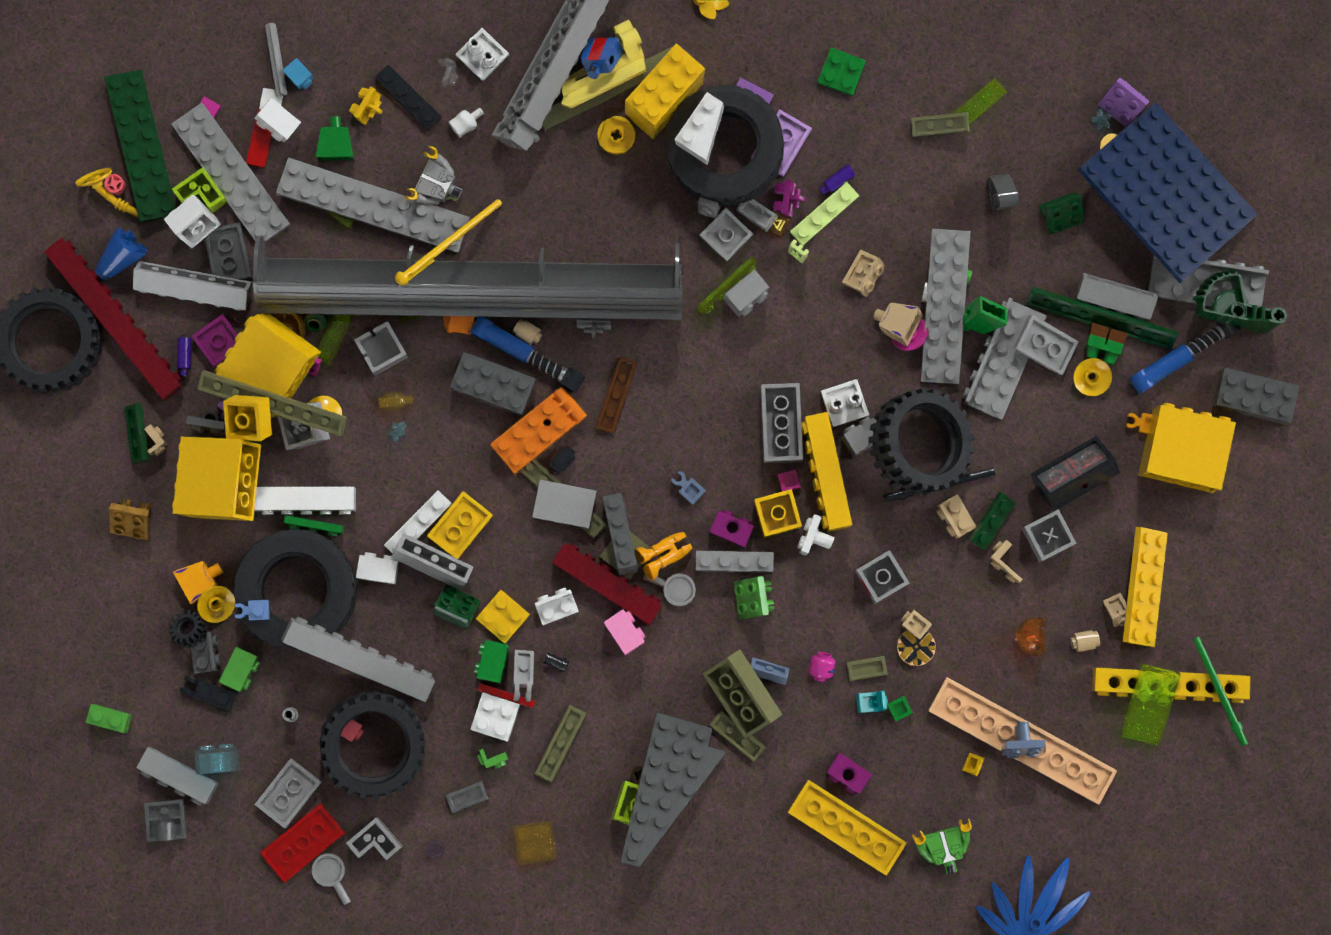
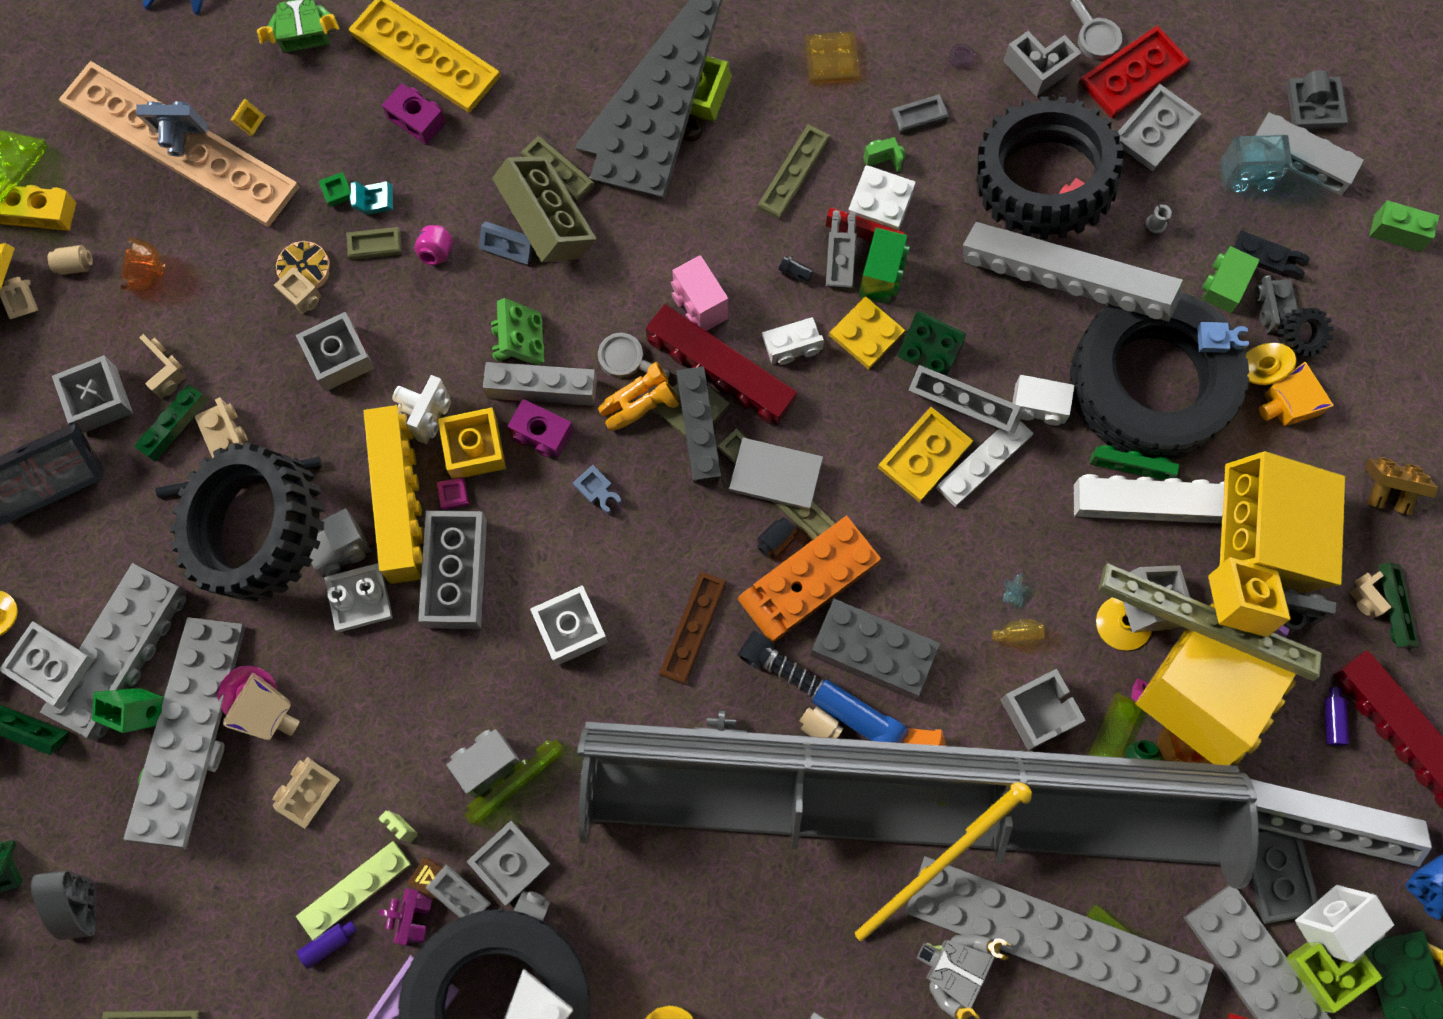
camera: 170 degrees left, 10 degrees down
(216, 339) = (1290, 739): magenta plate -> none
(699, 388) = (569, 625): none -> white brick

